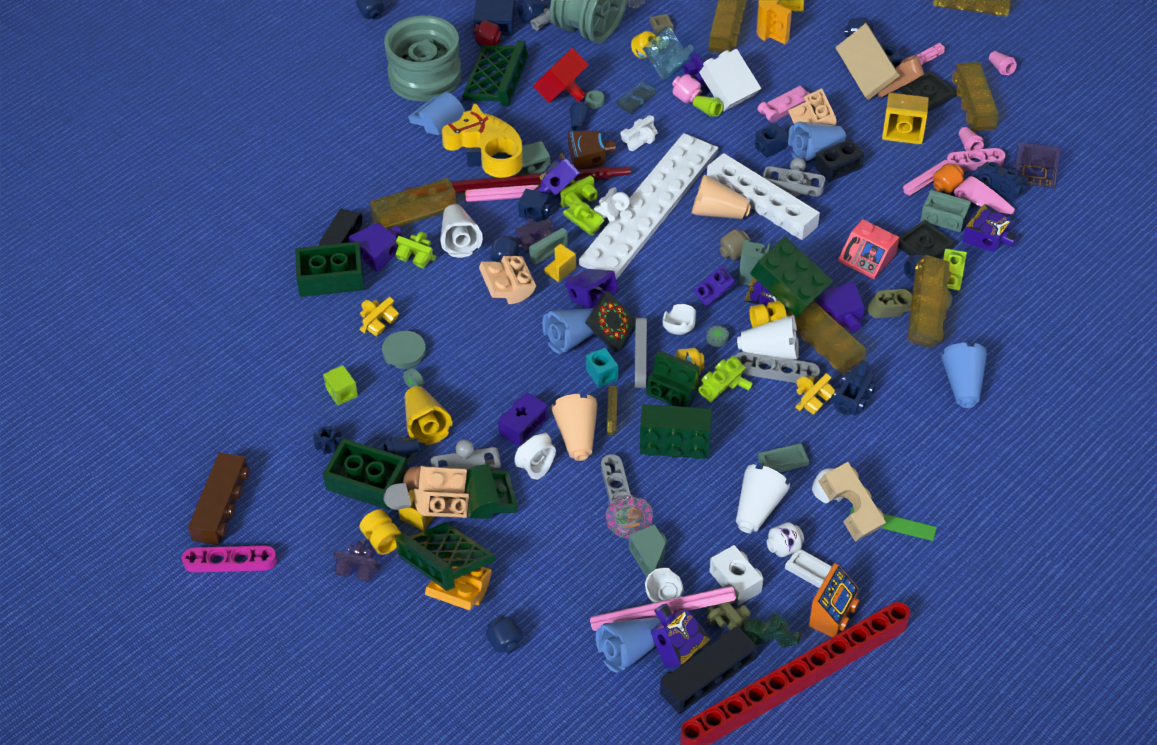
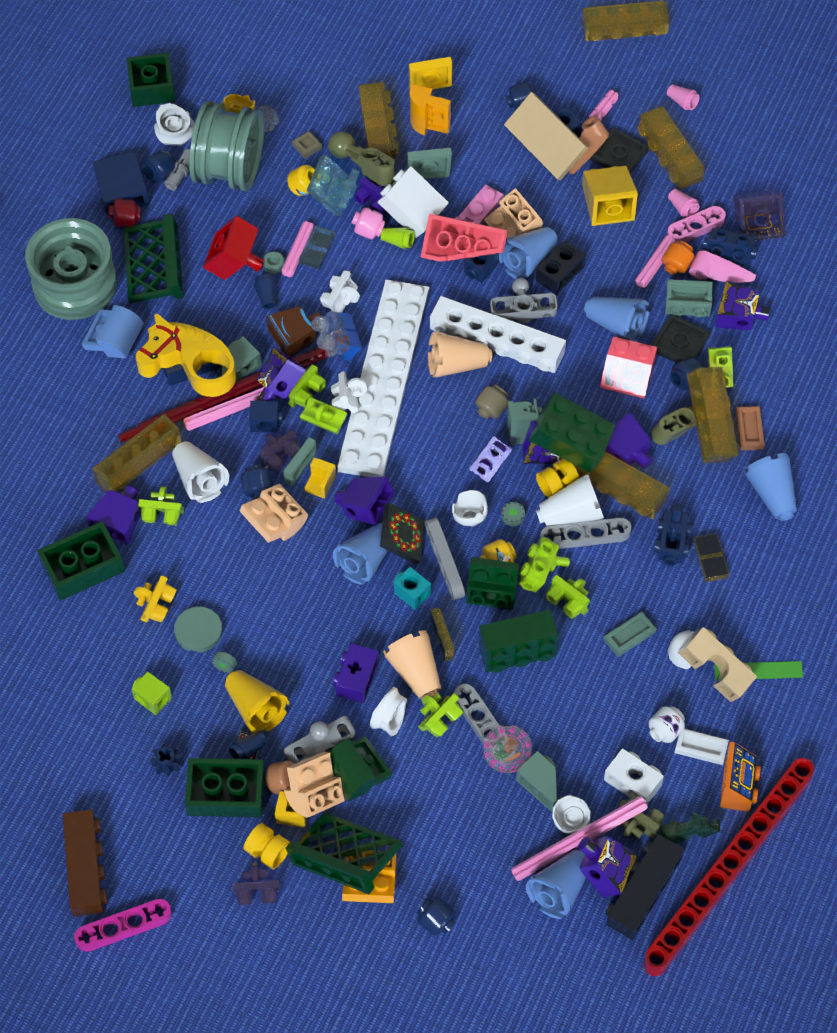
camera: 20 degrees left, 10 degrees up
(343, 225) = (71, 509): black beam -> none
(397, 497) = (272, 806): light grey tile -> none
(572, 476) = (447, 706): none -> lime hips
(608, 103) = (297, 248): none -> bright pink axle
(621, 159) = (337, 335): none -> clear hips
(708, 43) = (372, 161): none -> olive beam
(742, 409) = (572, 593): none -> lime hips
(756, 113) = (459, 239): none -> coral wedge
(758, 55) = (431, 163): none -> sand green tile
(759, 496) = (625, 688): white cone -> none
(809, 401) = (632, 561): yellow hips -> none
(877, 207) = (619, 315): none -> medium blue cone
(884, 418) = (711, 557): none -> black tile
(962, 325) = (750, 428): none -> nougat tile

